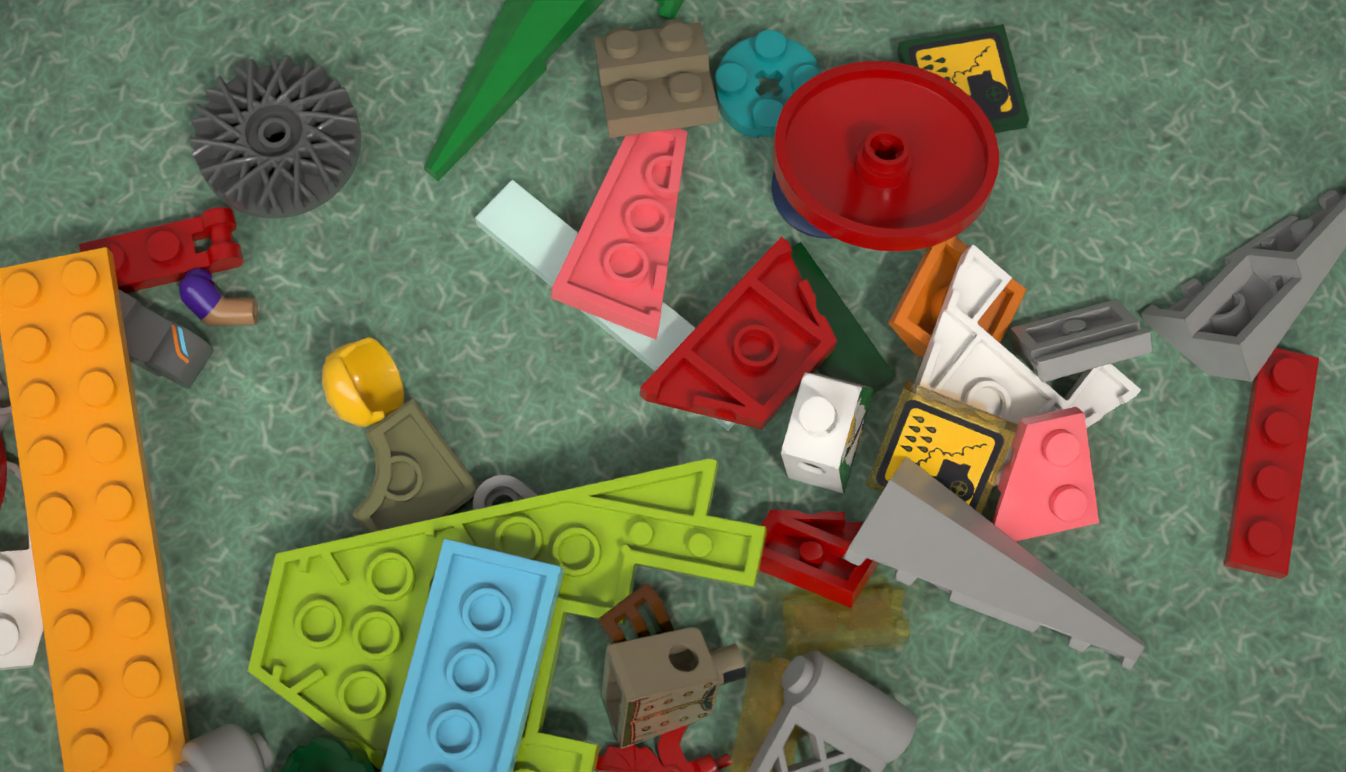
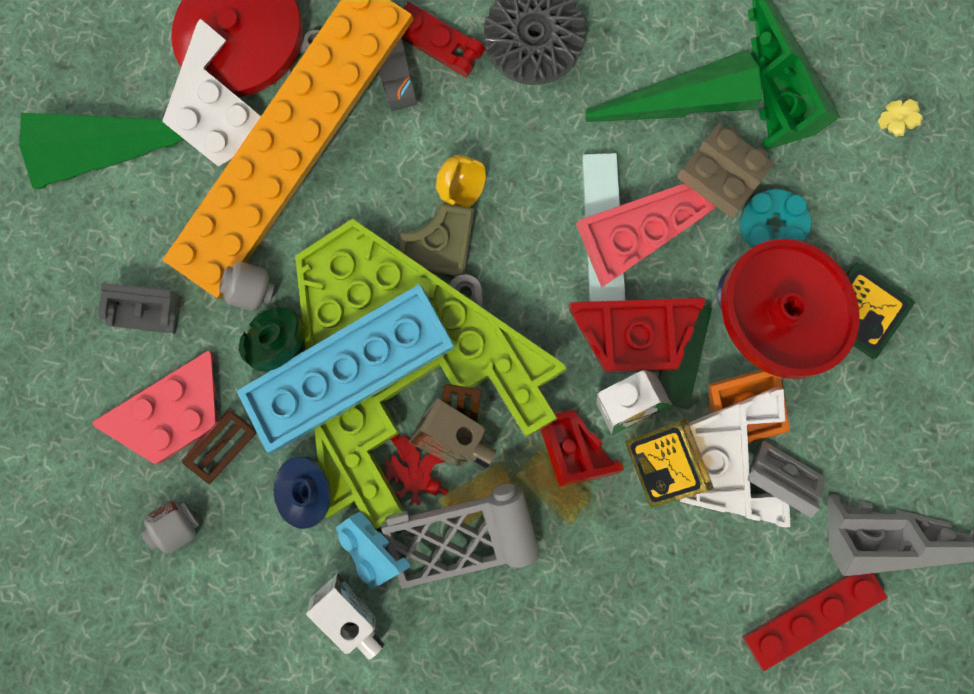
camera: 50 degrees right, 10 degrees up
(210, 306) = (434, 83): arm -> none
(943, 540) = (629, 501): light grey wedge -> none
(1048, 477) = (702, 521): coral wing -> none

